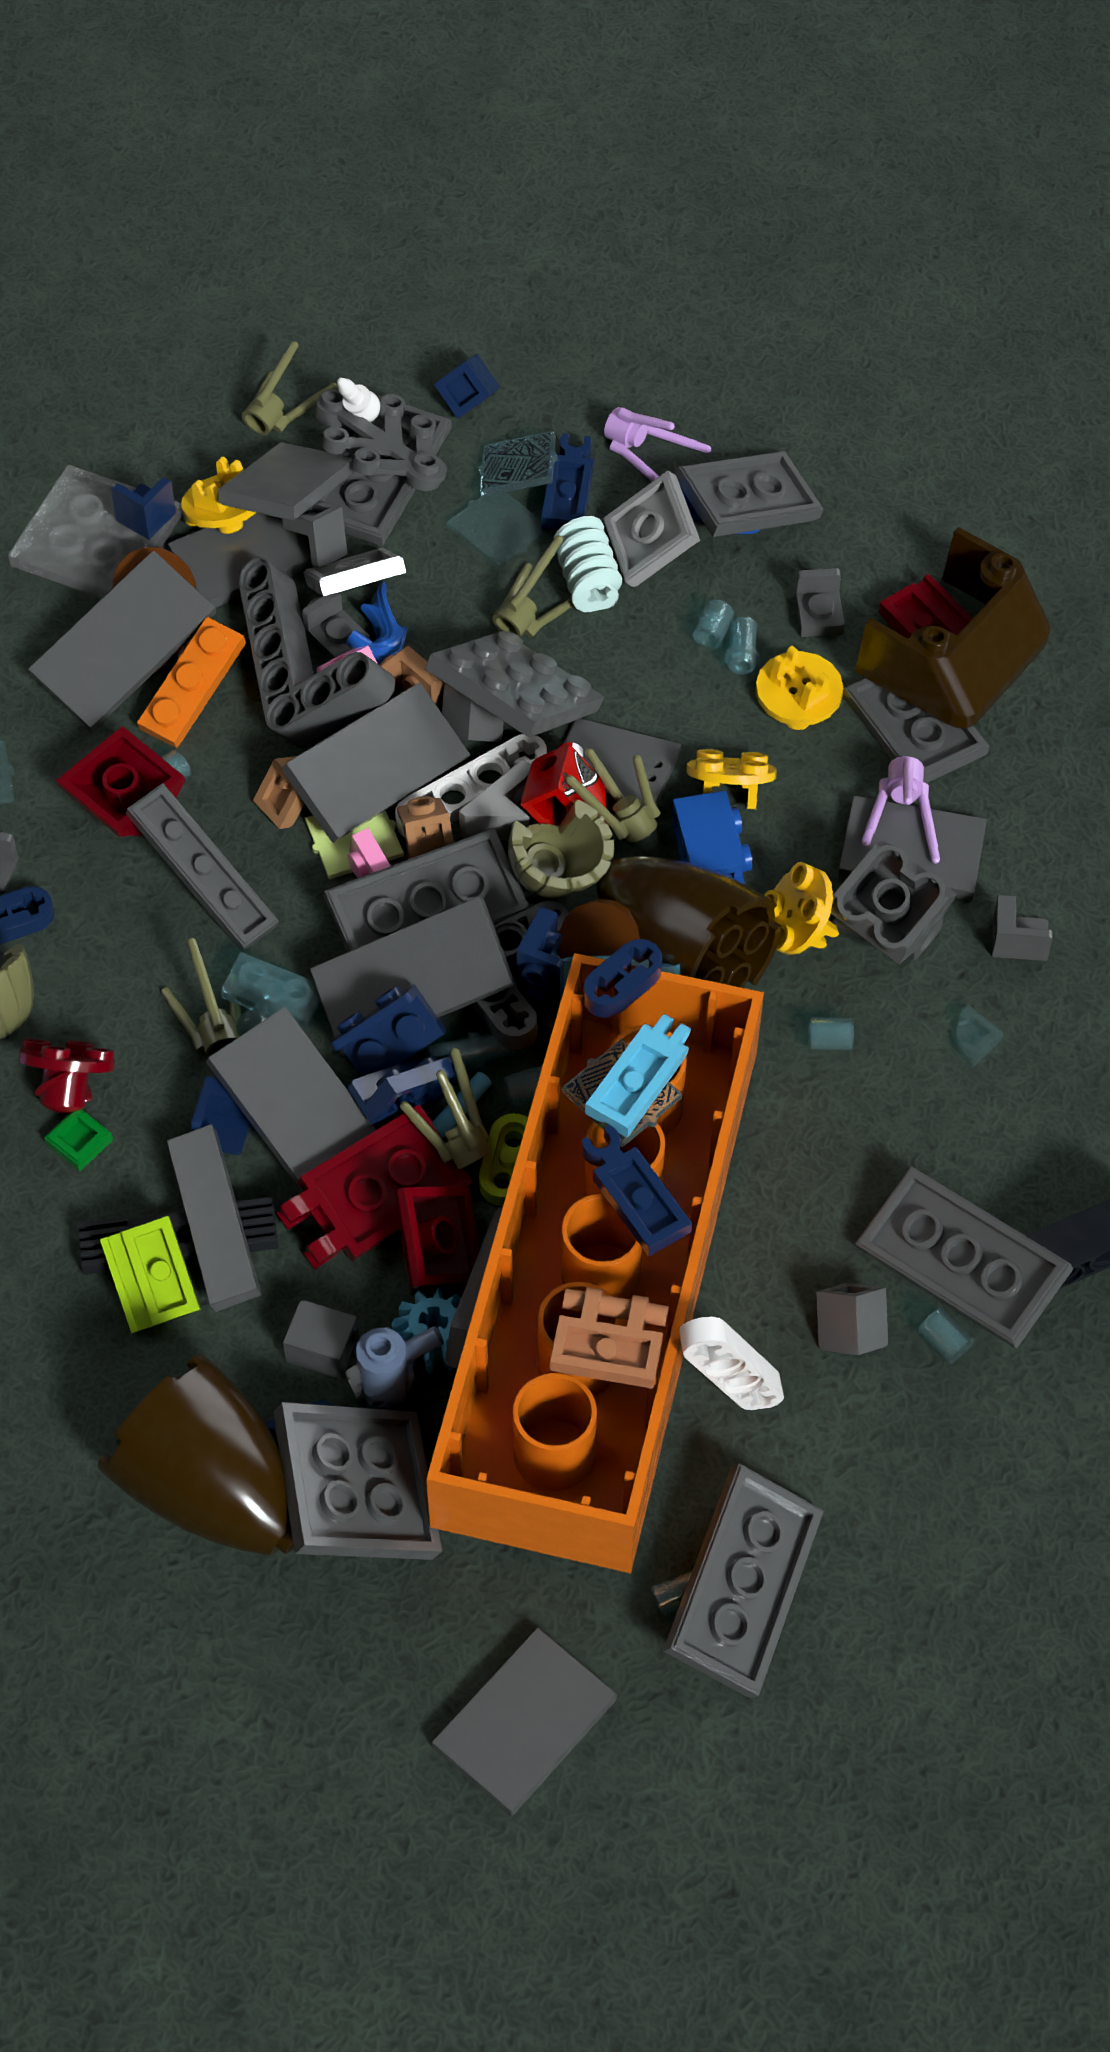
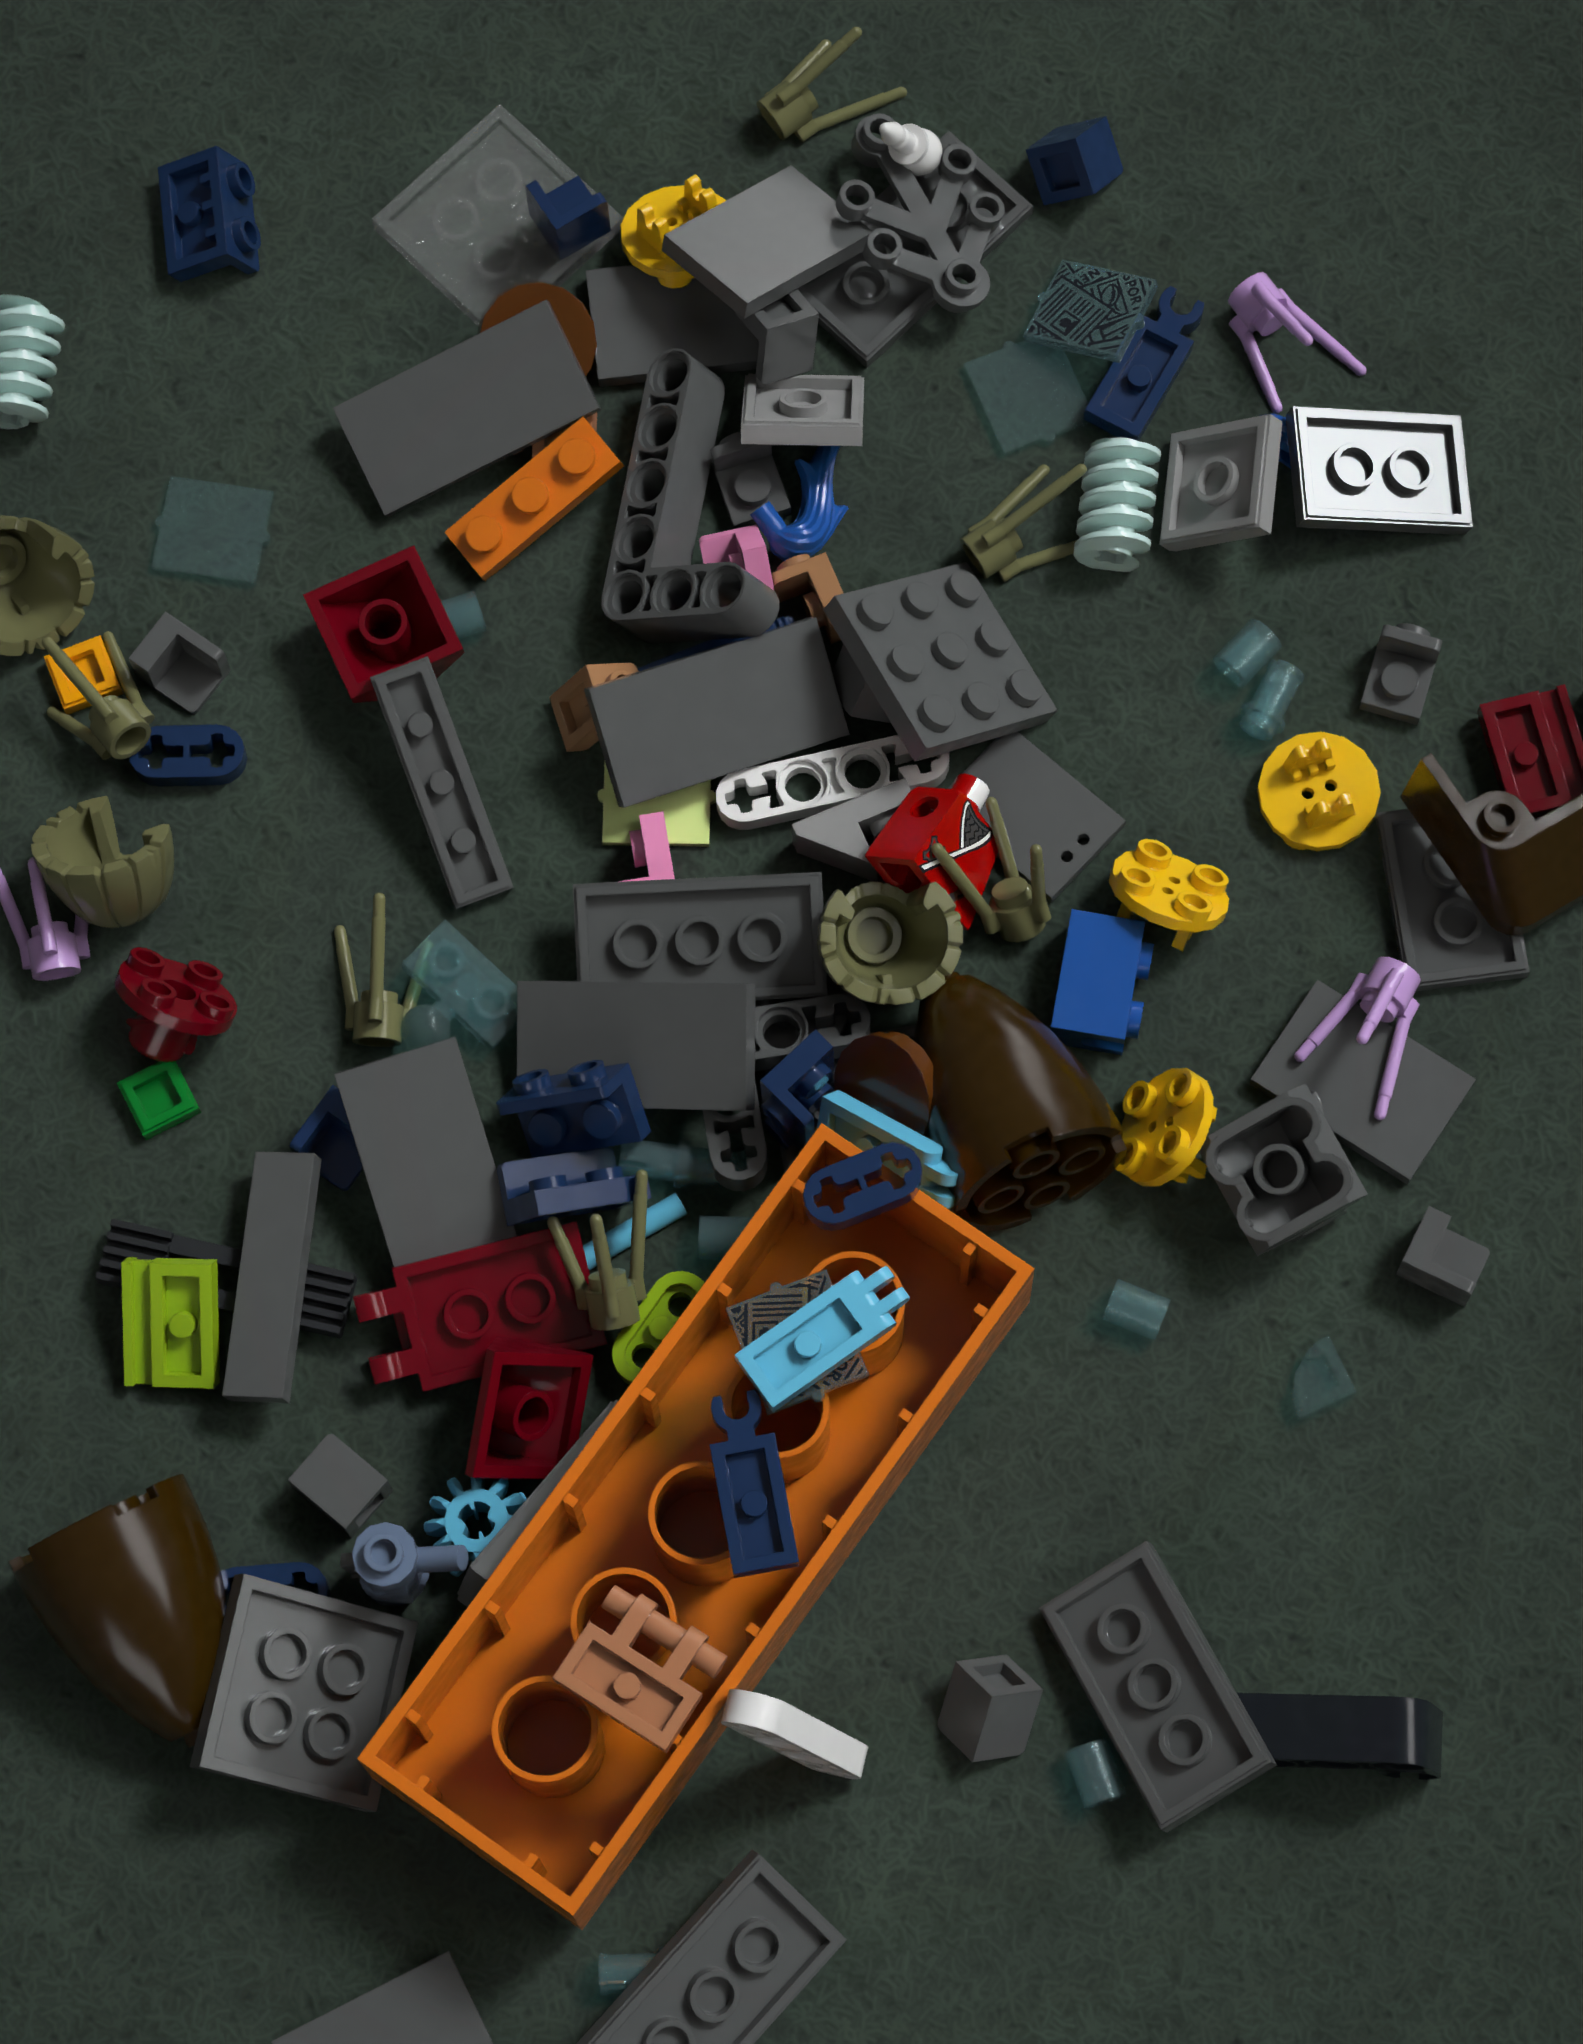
camera: 25 degrees right, 15 degrees up
(425, 825) = (743, 830): medium nougat bracket -> none

